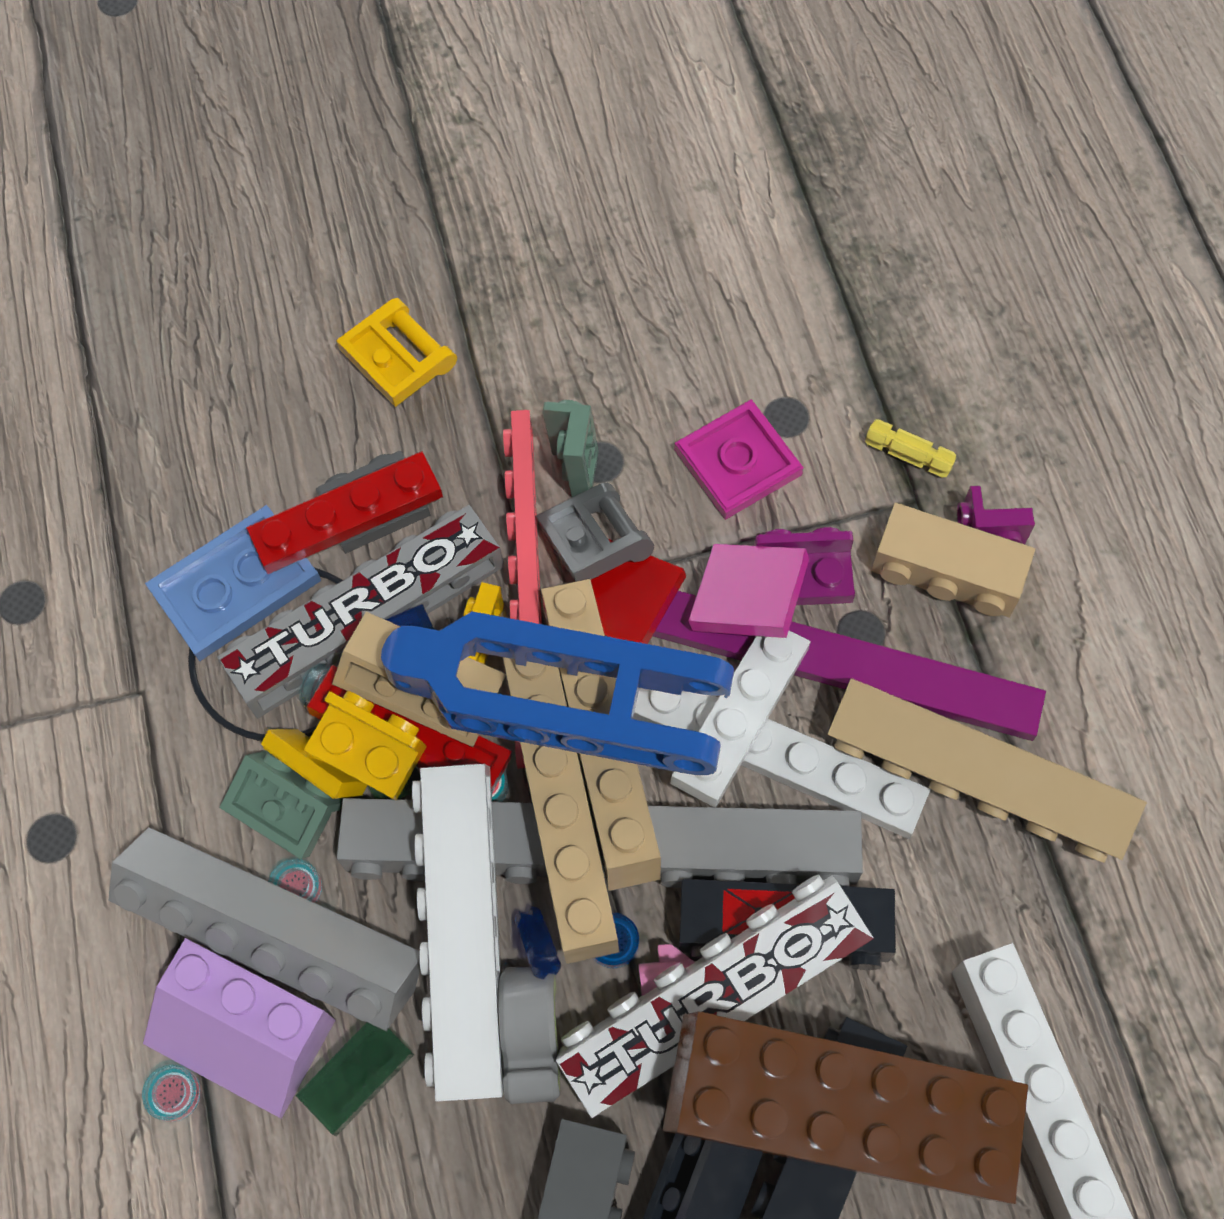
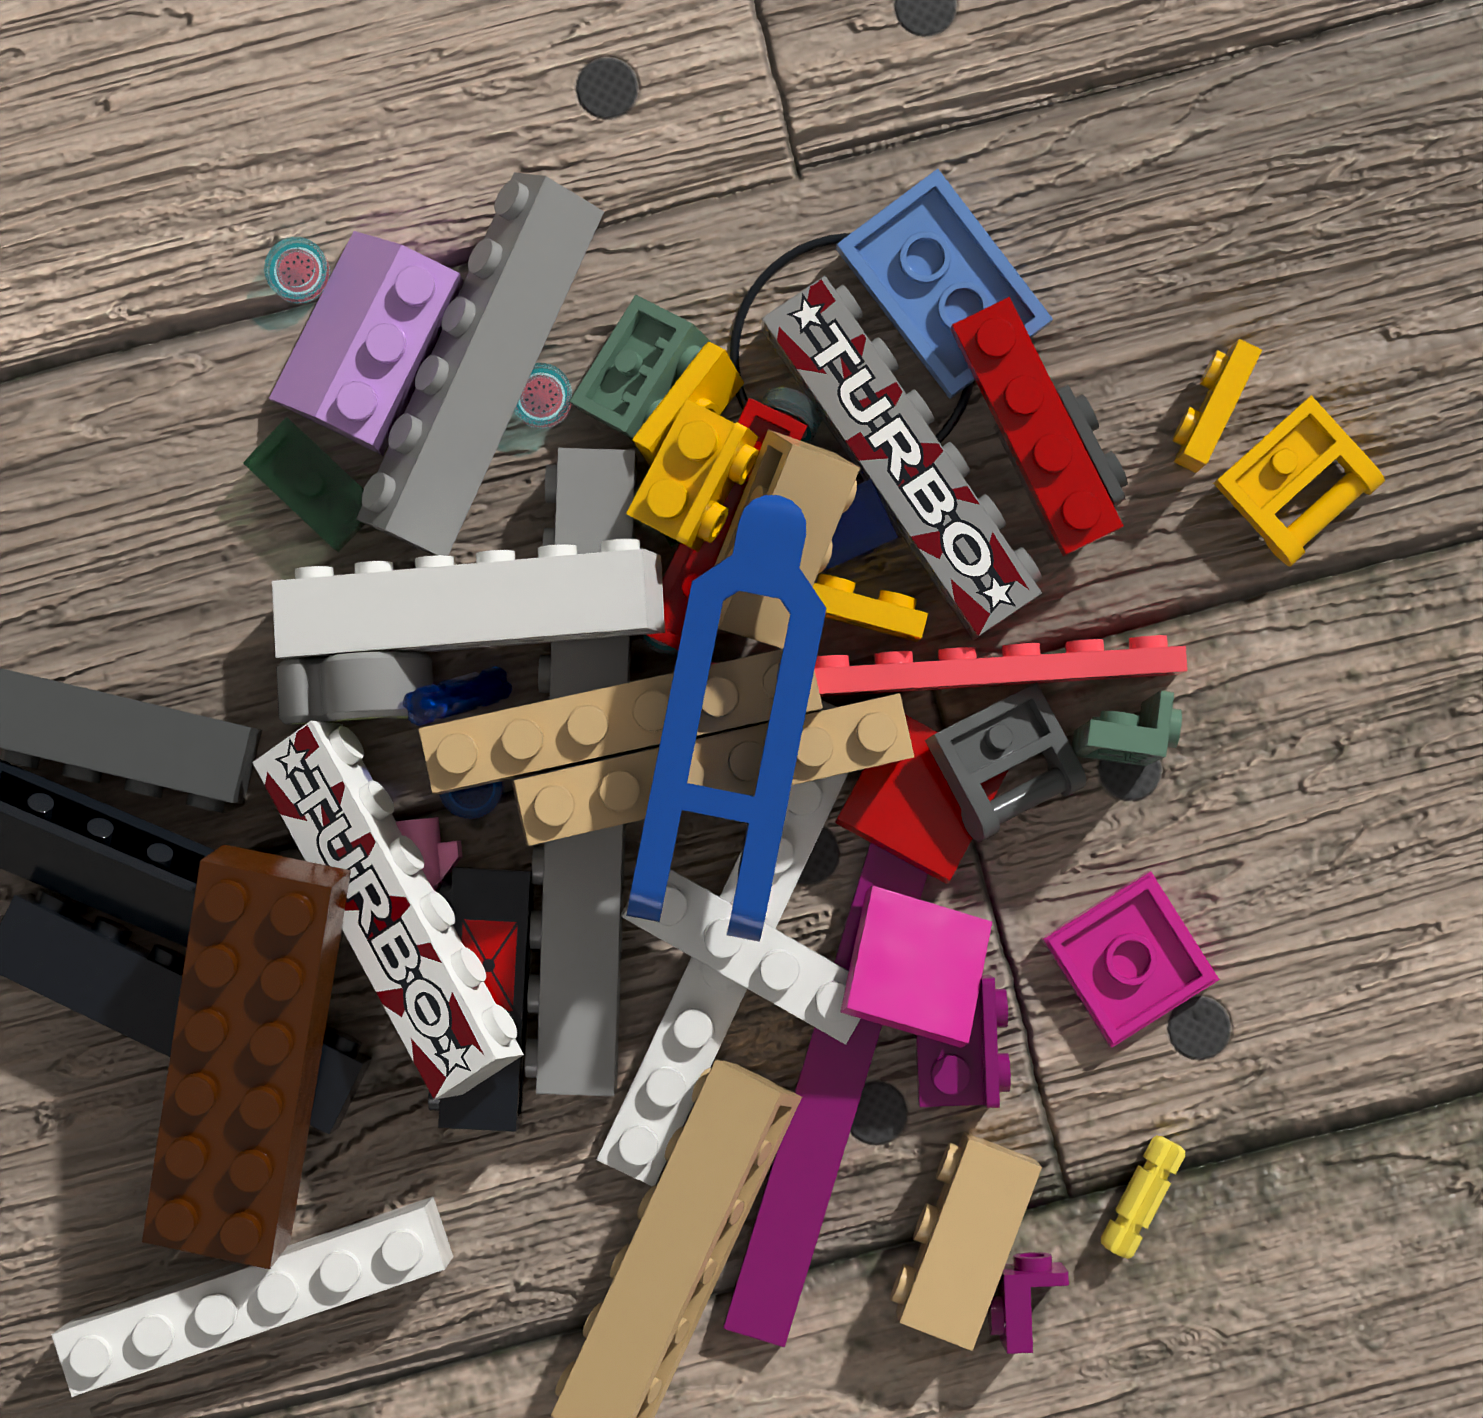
camera: 90 degrees right, 20 degrees up
(351, 405) = (1202, 428): none -> yellow plate

